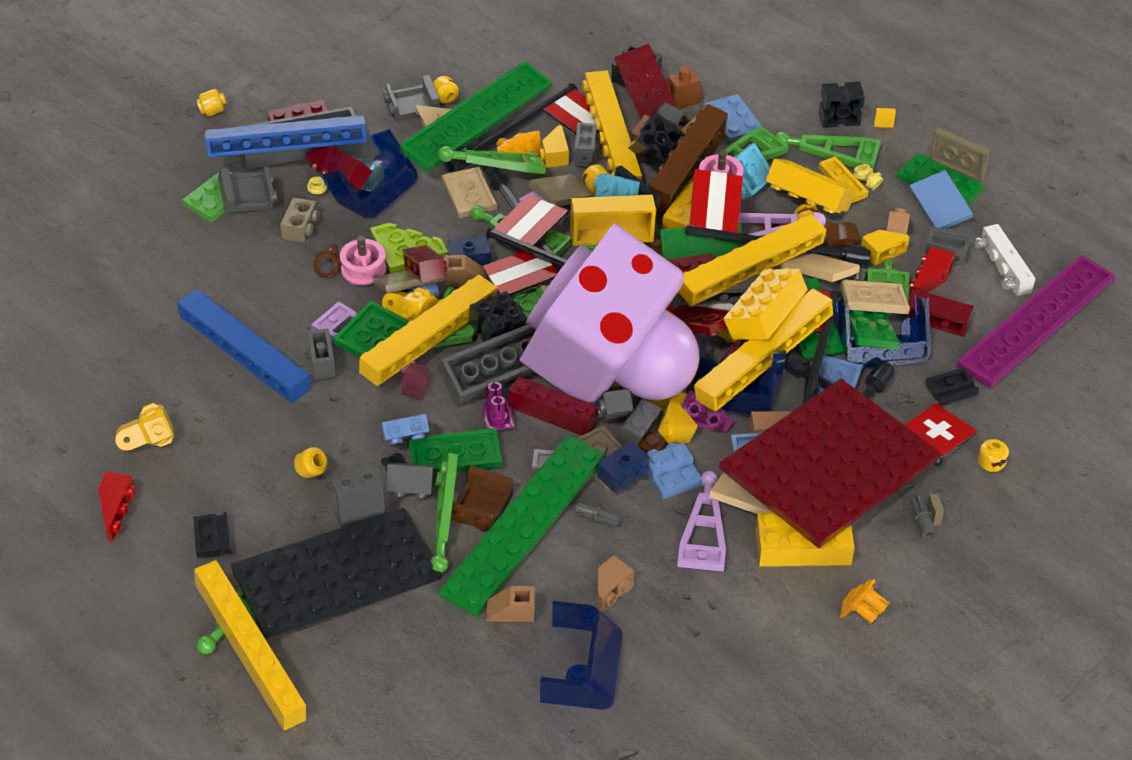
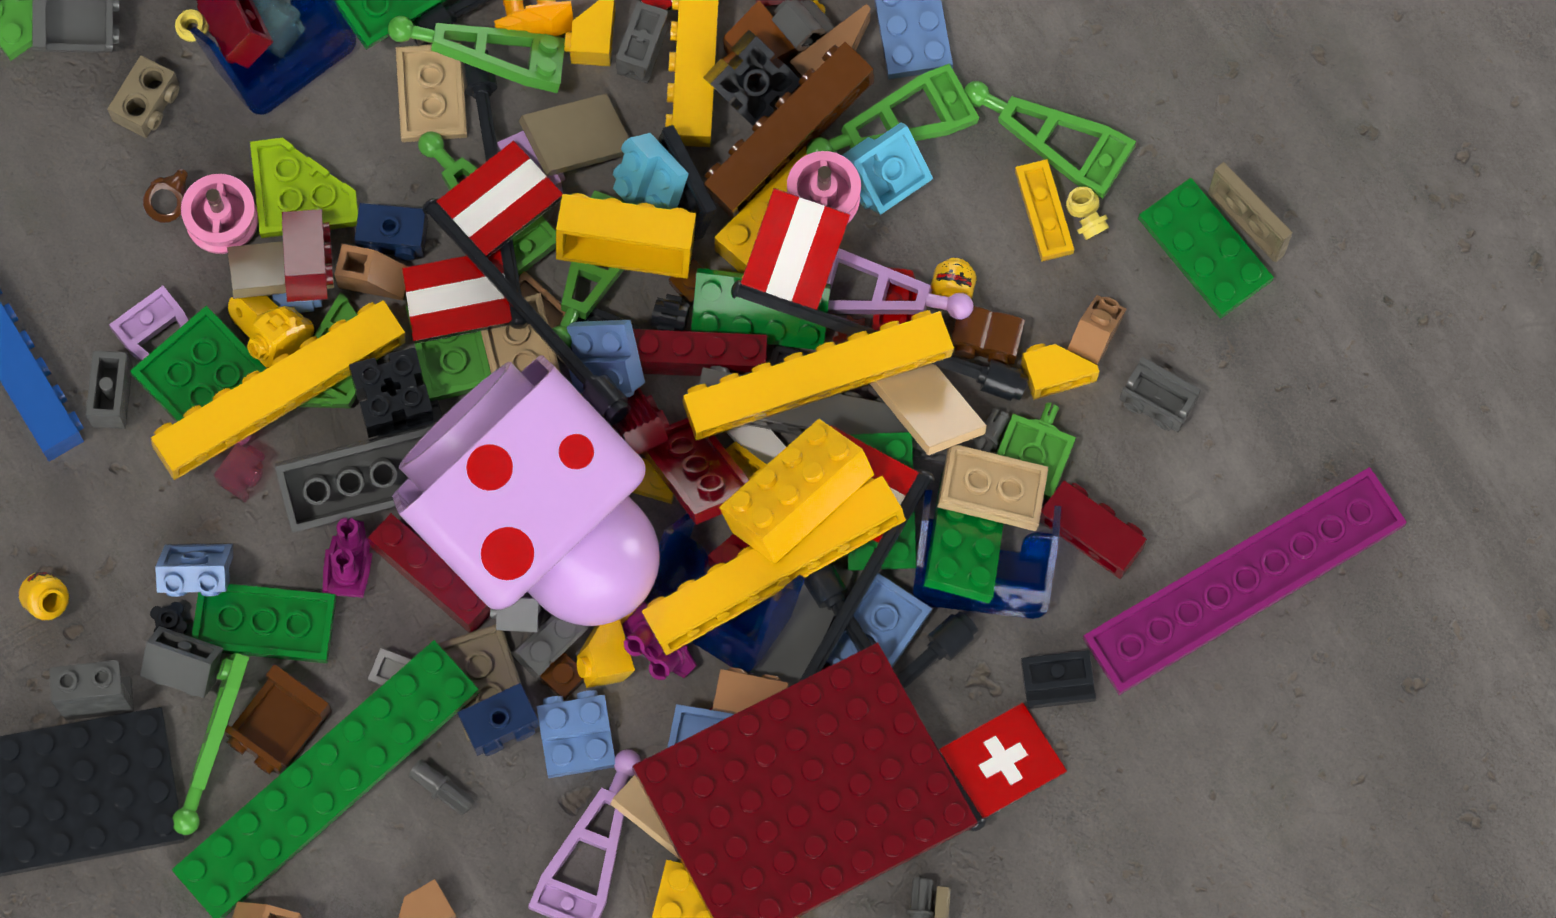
camera: 15 degrees right, 25 degrees up
(591, 174) = (639, 117): yellow head -> none
(810, 185) = (977, 224): yellow piece -> none
(841, 104) = (1094, 51): black brick -> none
(884, 117) = (1163, 89): yellow tile -> none
(934, 271) = (1119, 442): red slope -> none
(941, 200) = (1184, 299): medium blue tile -> none
(993, 455) = (1058, 840): yellow head -> none
(1006, 258) = (1246, 454): white piece -> none

